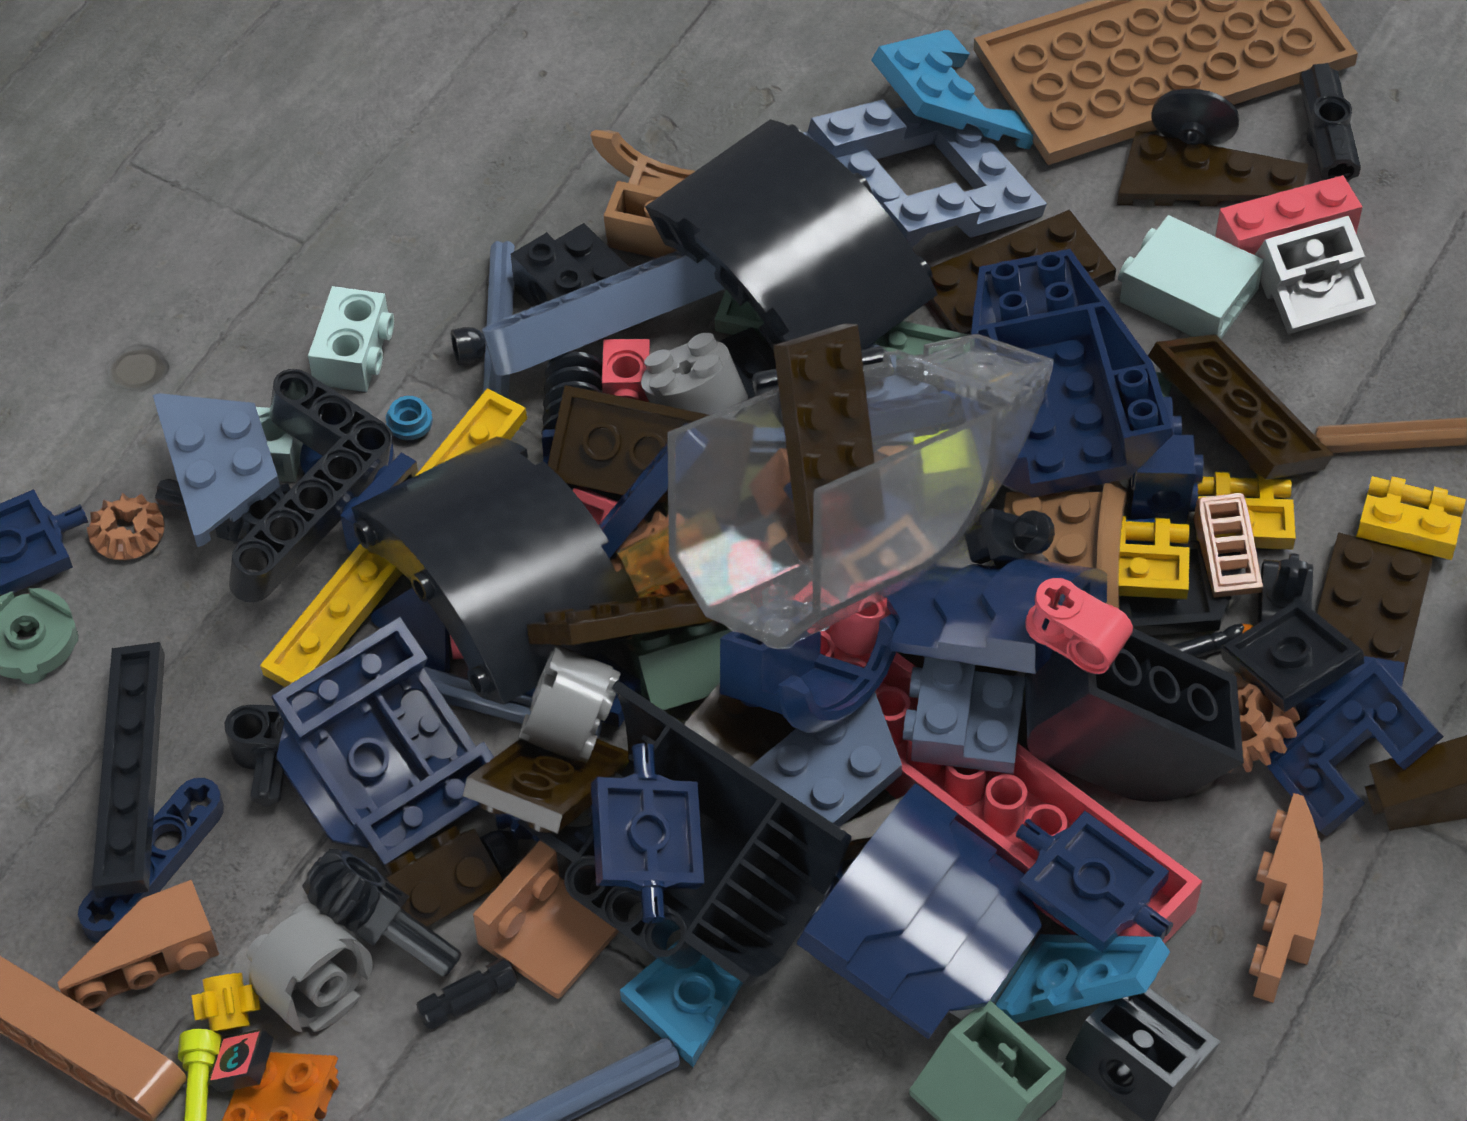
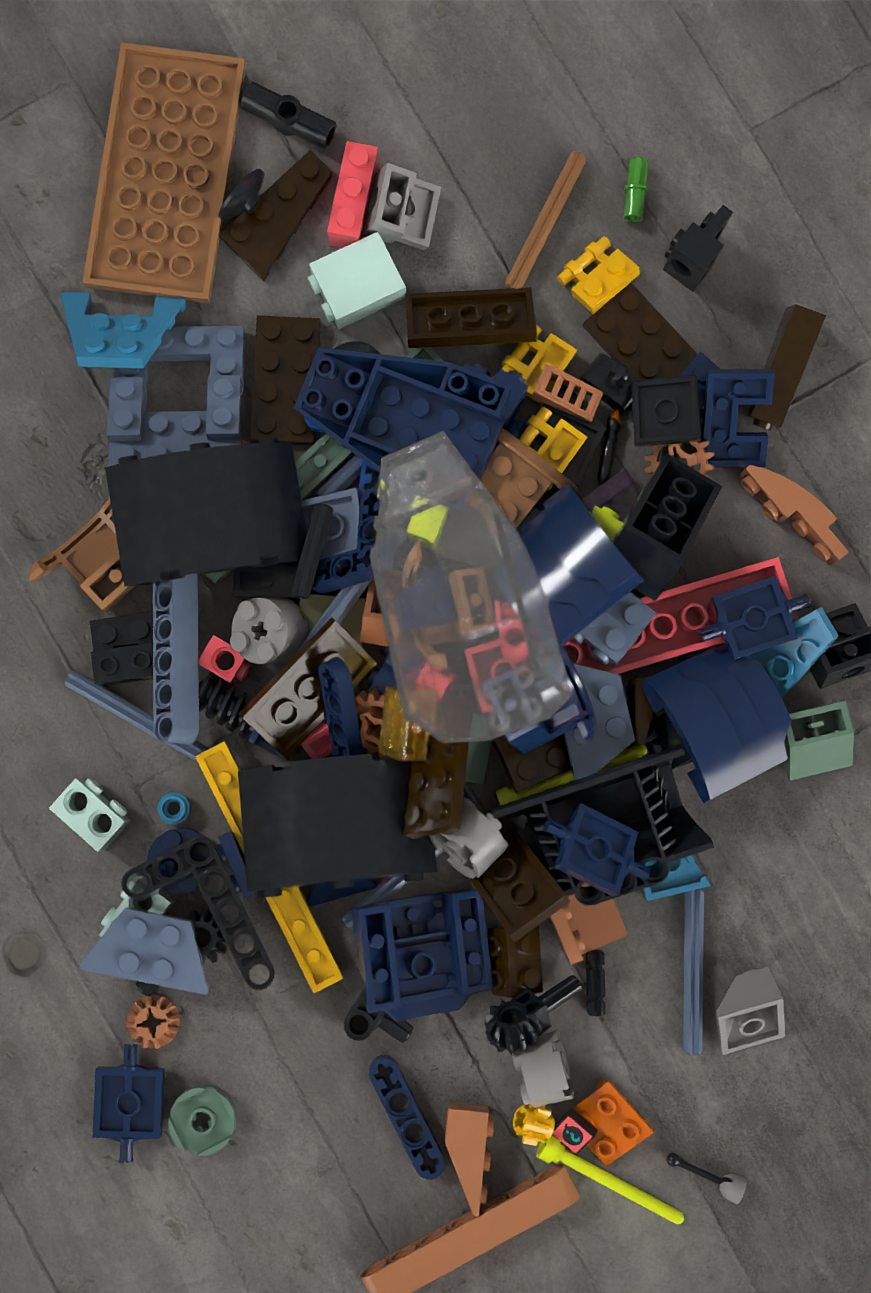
camera: 65 degrees left, 30 degrees up
(129, 771) = (344, 1106): black plate -> none
(467, 344) = (138, 742): black hinge -> none
(822, 413) = (413, 597): dark brown plate -> none
(1010, 537) = (524, 516): black hips -> none
(1080, 628) = (650, 542): coral piece -> none

